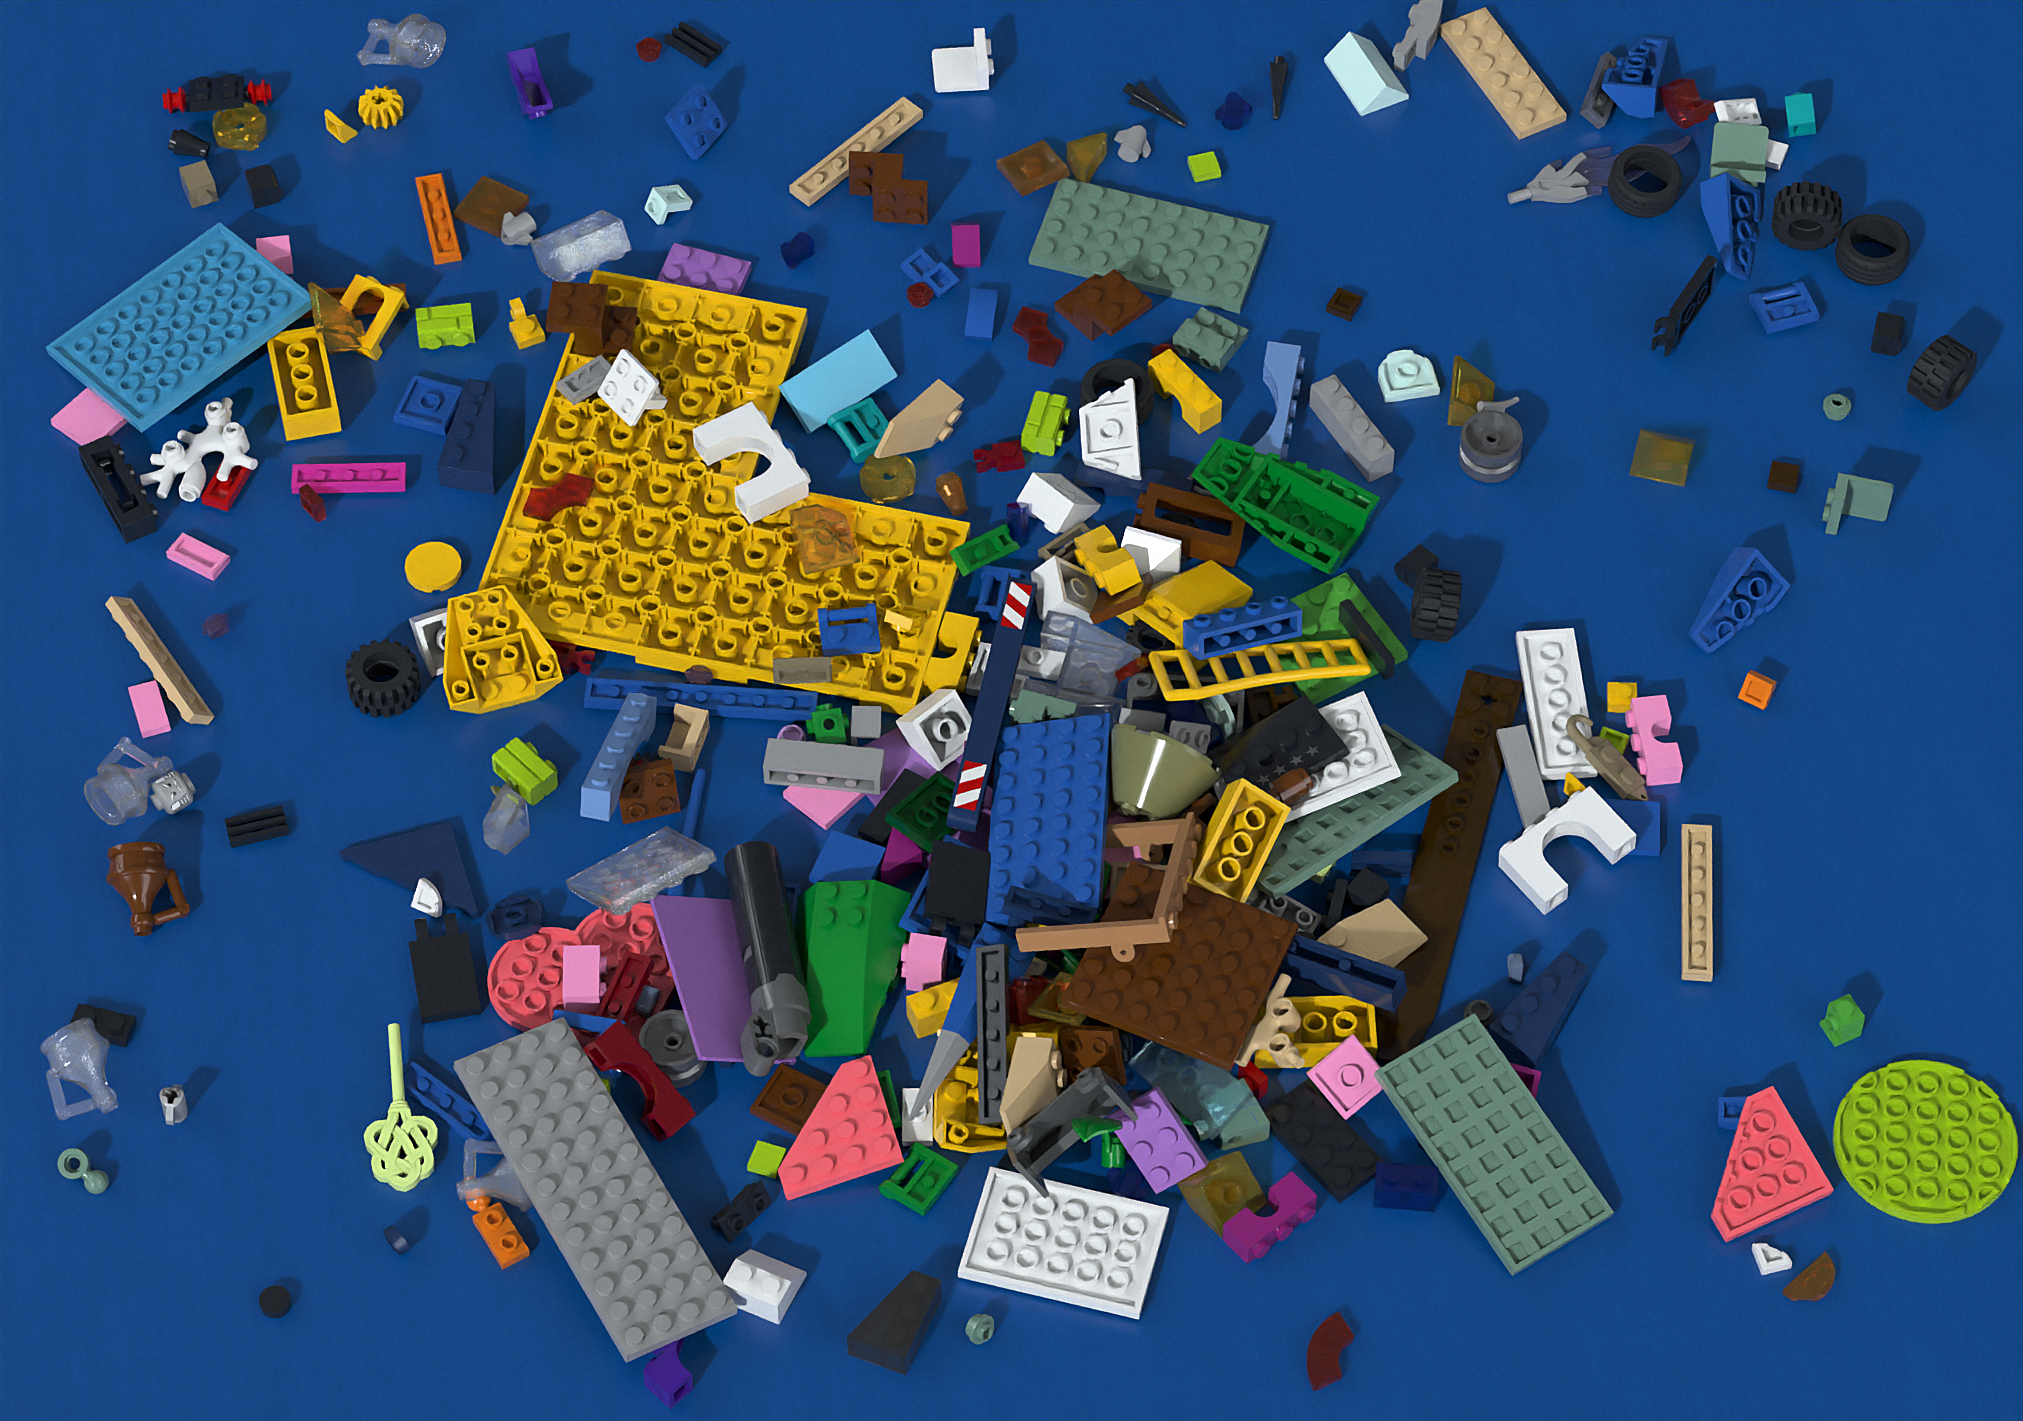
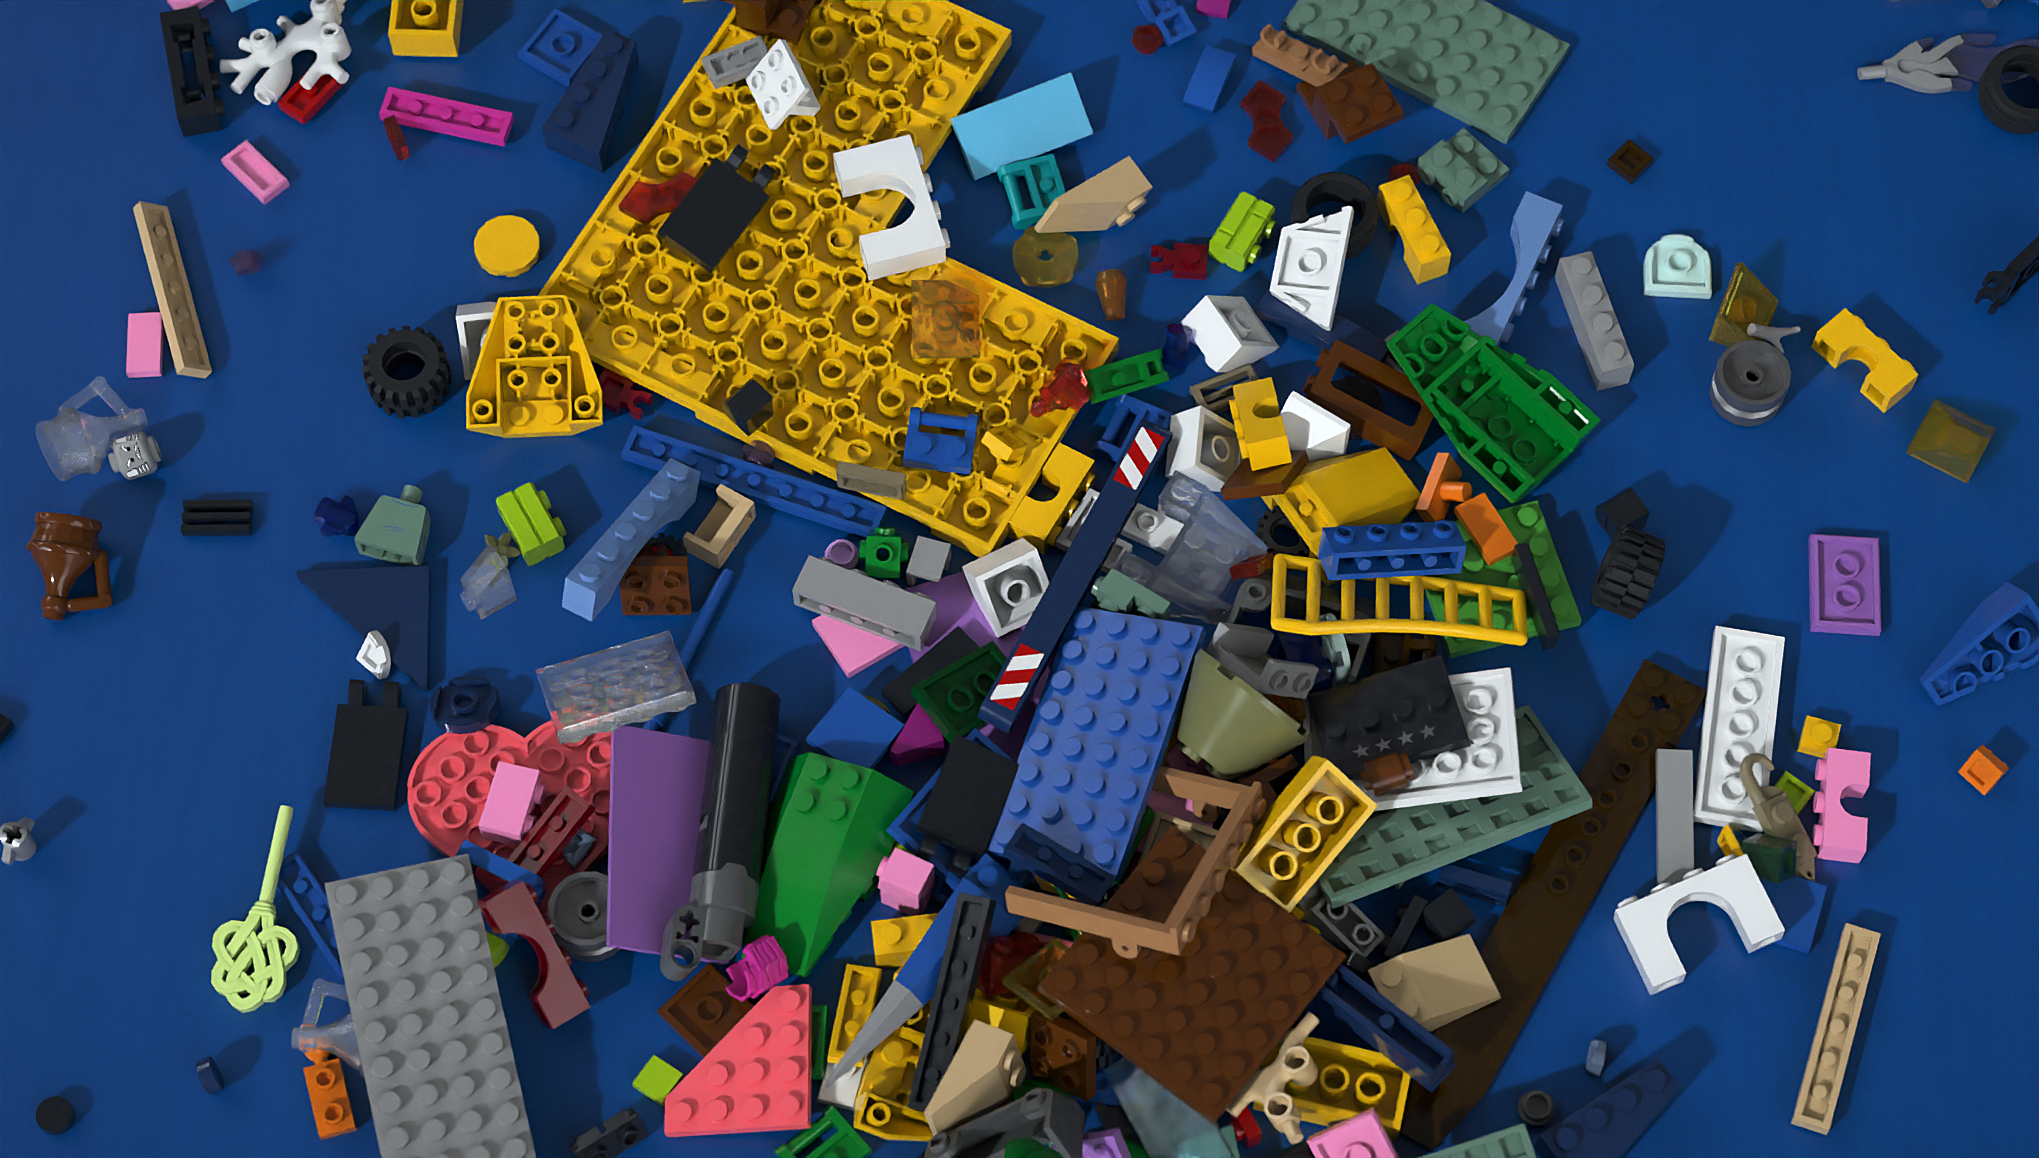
camera: 15 degrees right, 10 degrees up
(360, 802) = (337, 517): none -> clear blue piece
(412, 800) = (396, 529): none -> sand green torso
(607, 496) = (717, 210): none -> black tile
(683, 637) = (749, 407): none -> black piece
(827, 1053) = (759, 970): none -> dark pink hair
(911, 1068) = (855, 1006): none -> yellow tile
(938, 567) = (1062, 389): none -> clear red rock
(1049, 281) = (1297, 57): none -> medium nougat plate
(1267, 577) = (1442, 489): none -> orange tile
(1312, 599) = (1486, 528): none -> orange tile
(1559, 398) = (1849, 339): none -> yellow arch
(1609, 581) = (1844, 584): none -> medium lavender tile
(1611, 786) = (1771, 856): none -> clear green brick

